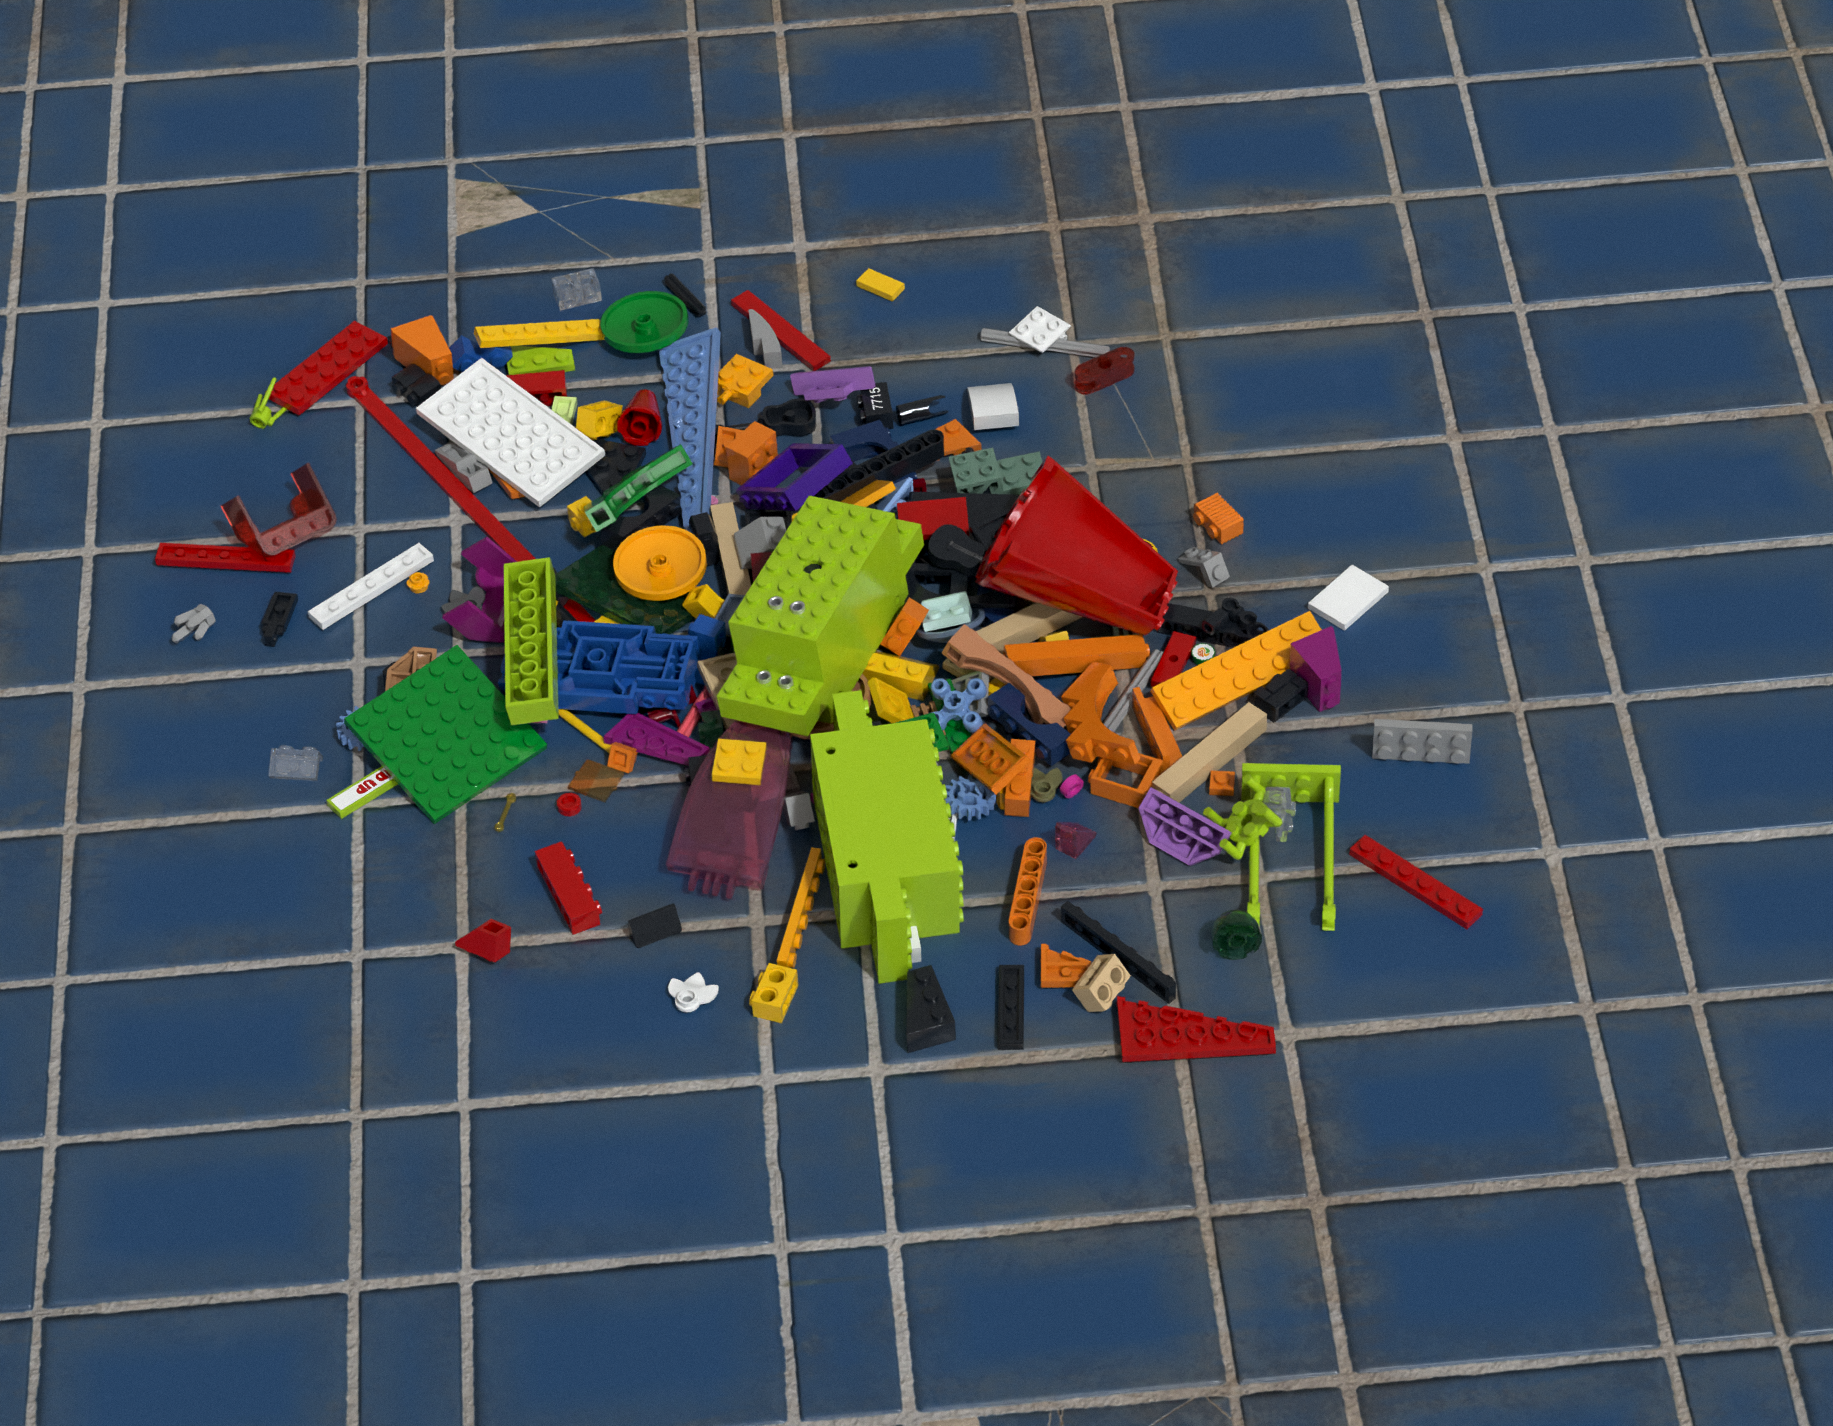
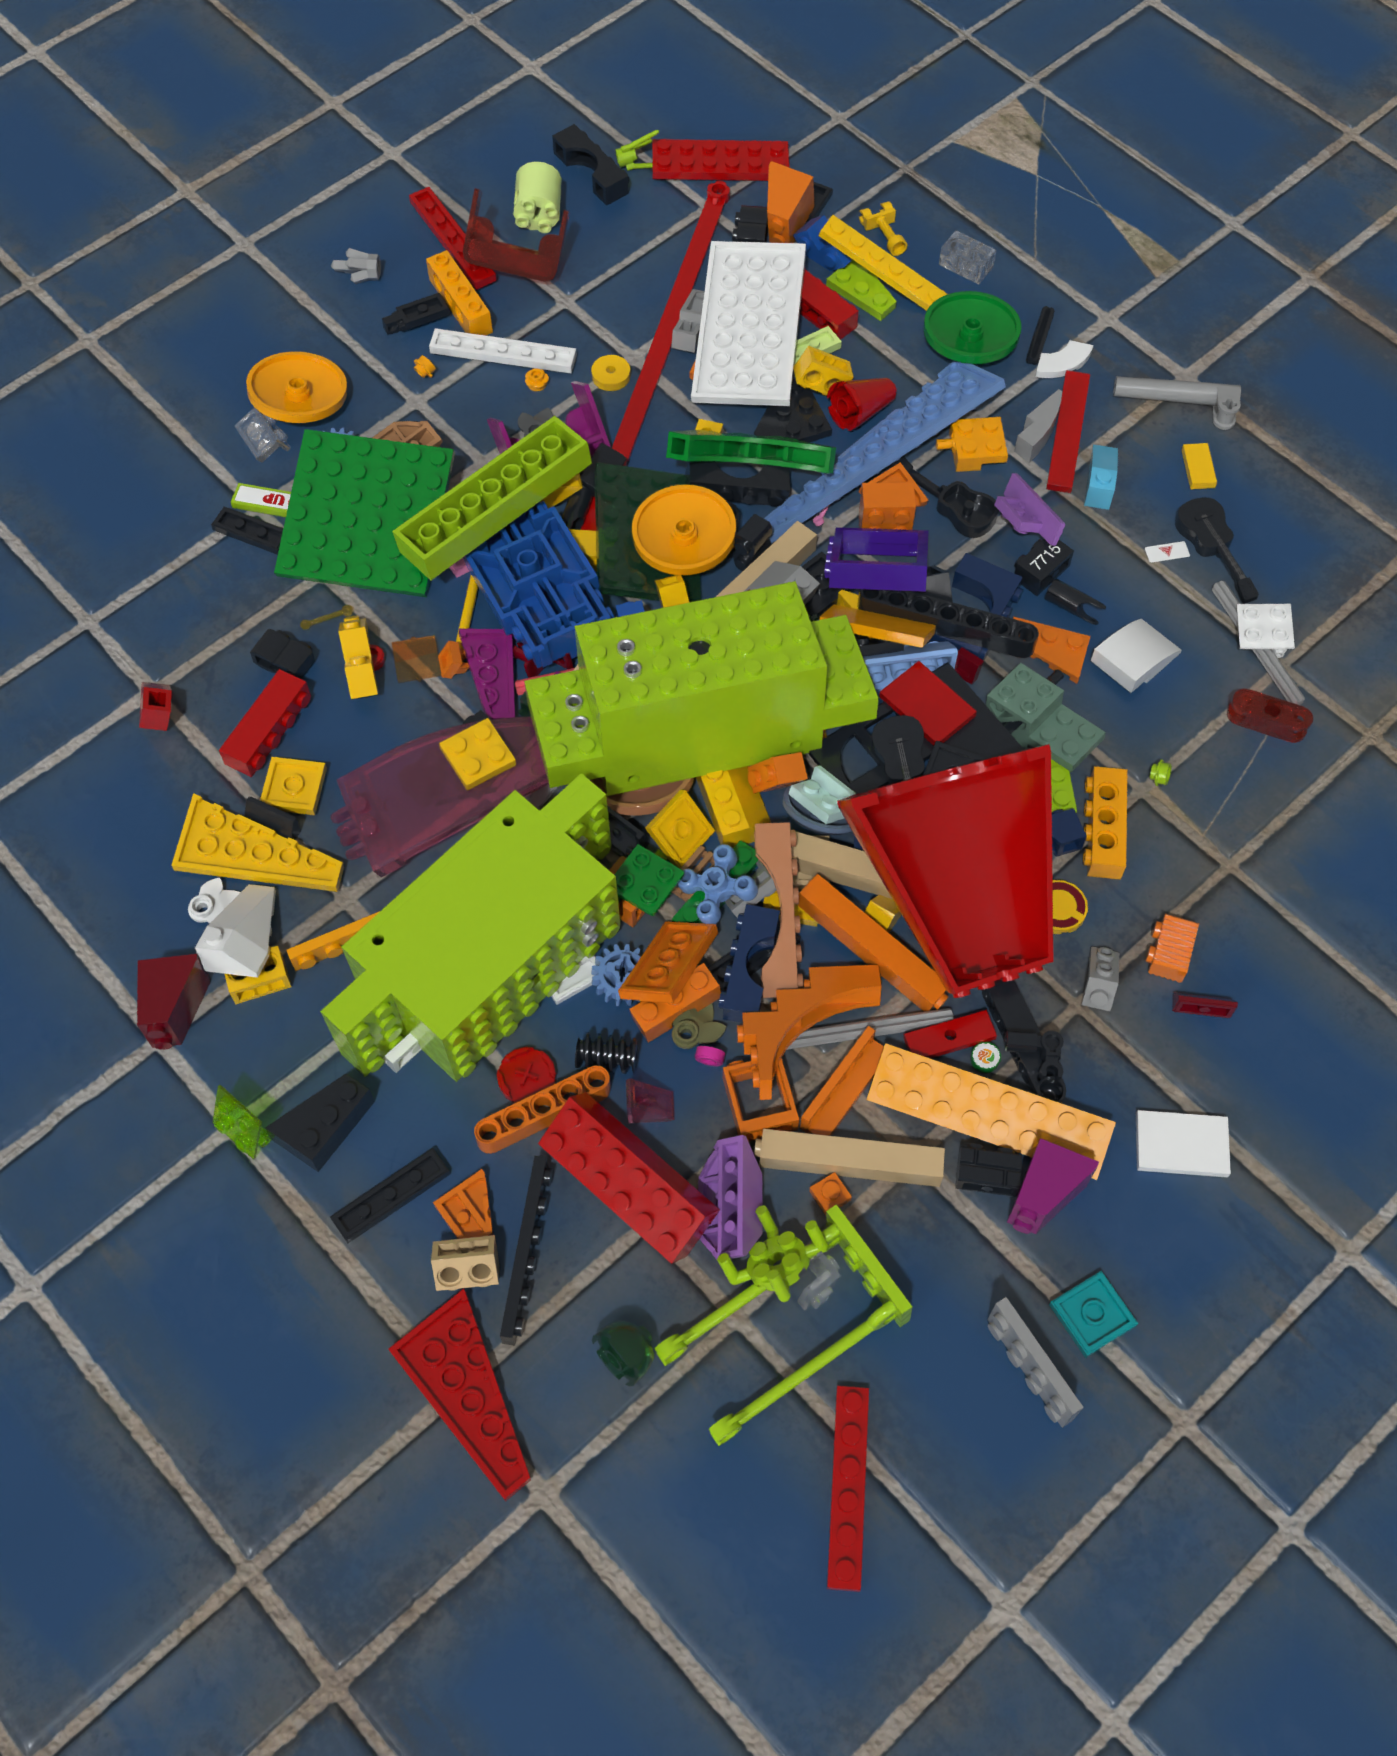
camera: 50 degrees right, 15 degrees up
(221, 438) = (576, 148): none -> black arch
(253, 482) = (537, 197): none -> yellowish green cylinder
(277, 716) = (296, 387): none -> light orange dish
(305, 580) = (459, 294): none -> light orange brick
(335, 638) = (424, 367): none -> light orange plate
(377, 816) = (248, 529): none -> black tile
(457, 537) = (610, 372): none -> yellow piece
(487, 313) = (896, 243): none -> yellow bar
(516, 850) = (278, 652): none -> black brick
(556, 797) = (357, 657): none -> yellow arch
(636, 897) = (294, 785): none -> yellow plate
(663, 953) = (240, 848): none -> yellow wing
(720, 296) = (1069, 359): none -> white tile
(740, 979) = (240, 934): none -> white wedge
(750, 1044) = (169, 997): none -> dark red slope
(838, 335) = (1101, 477): none -> medium azure slope
(842, 237) = (1223, 397): none -> light grey axle
(884, 1051) = (239, 1123): none -> clear neon green hinge
(928, 343) = (1167, 551): none -> white sticker
(930, 311) = (1205, 526): none -> black piece
(991, 891) = (525, 1073): none -> red tile
(1013, 837) = (607, 1052): none -> black piece
(1091, 448) = (1160, 773): none -> lime plate
(1113, 496) = (1112, 785): none -> light orange brick
(1121, 865) = (628, 1177): none -> red brick
(1269, 530) = (1203, 1005): none -> dark red slope
(1415, 702) = (1093, 1314): none -> teal tile

